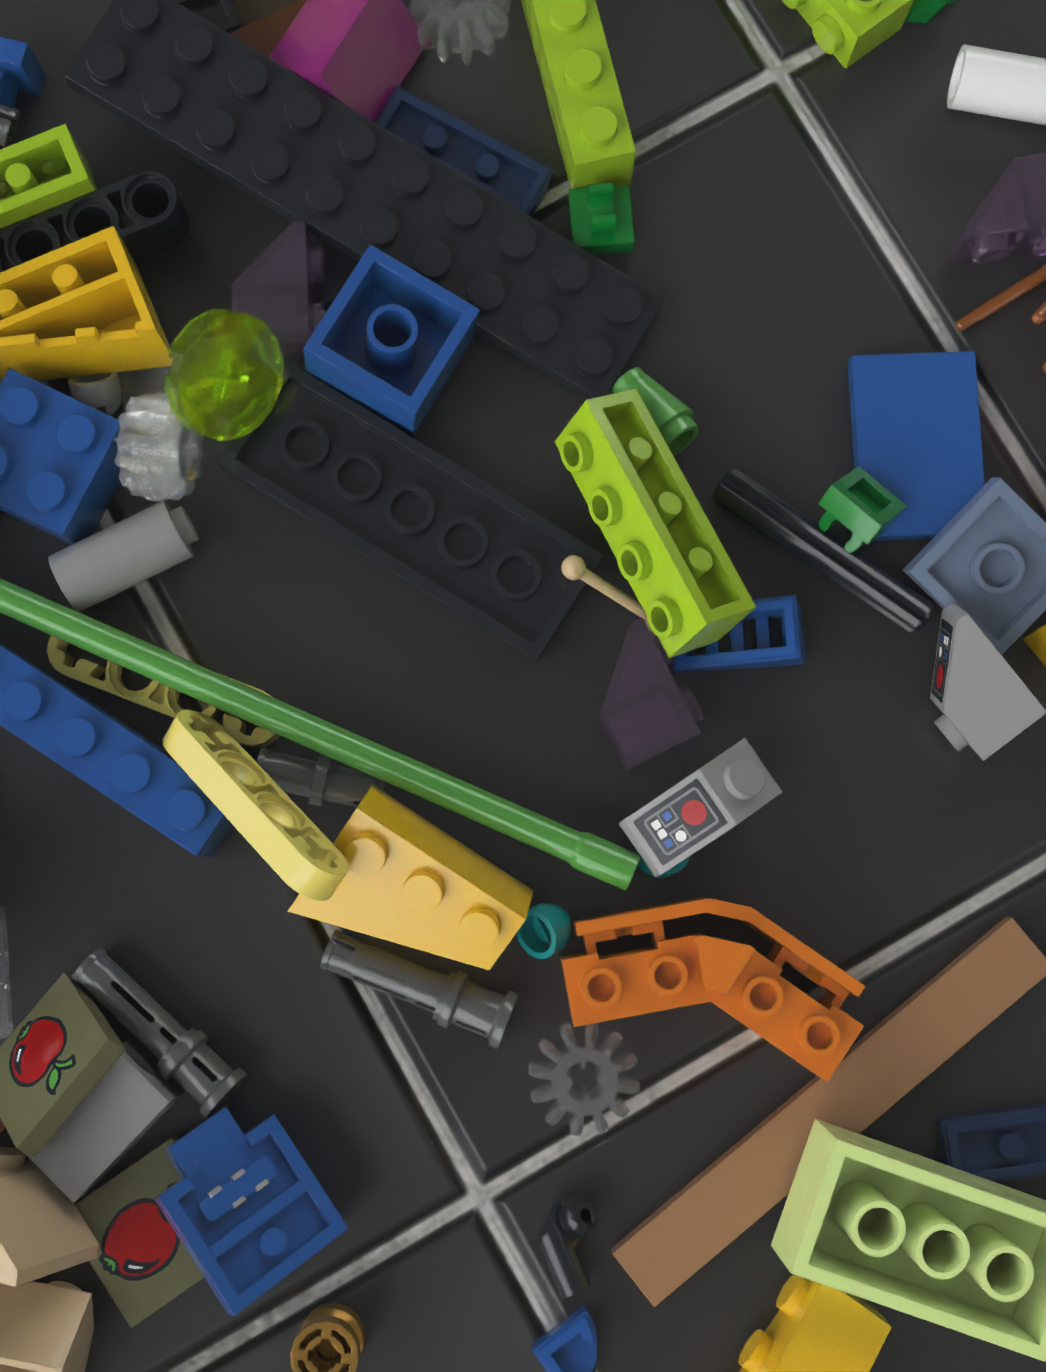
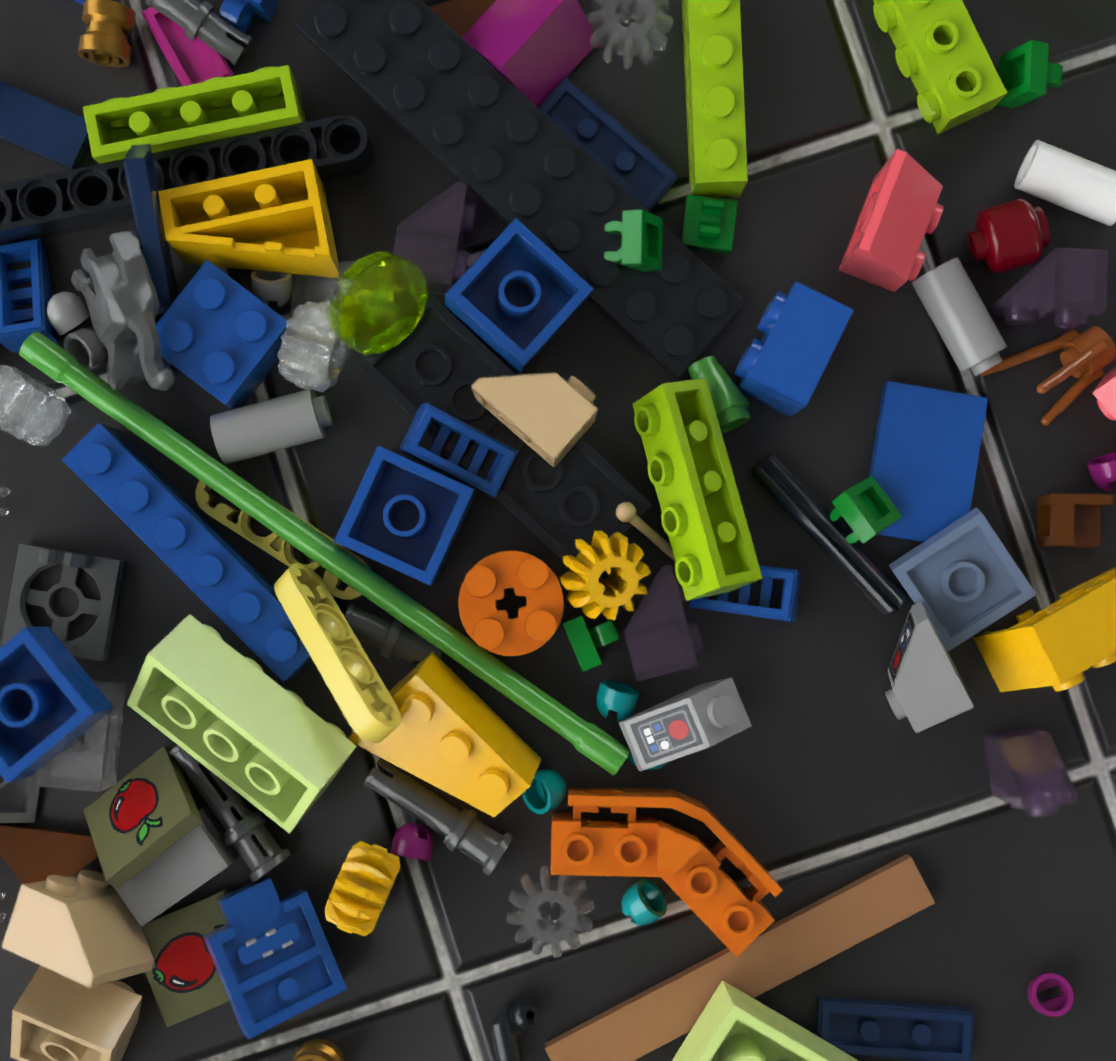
camera: 10 degrees right, 5 degrees up
(149, 917) = (239, 722): none -> yellowish green brick
(308, 625) = (406, 516): none -> blue brick
(342, 1096) = (362, 888): none -> yellow gear
(363, 512) = (411, 446): none -> blue slope
(395, 1028) = (413, 841): none -> magenta hinge
(424, 688) = (494, 627): none -> orange brick
(442, 459) = (540, 410): none -> tan slope
(523, 241) = (640, 240): none -> green tile
(558, 734) = (587, 640): none -> green tile
(587, 652) = (619, 586): none -> yellow gear
(611, 797) = (616, 697): none -> teal hinge
(696, 1043) = (644, 902): none -> teal hinge
(730, 333) = (794, 350): none -> blue brick
(818, 170) = (893, 224): none -> coral slope
(920, 263) = (960, 317): none -> light grey brick
(956, 159) = (1009, 235): none -> dark red head

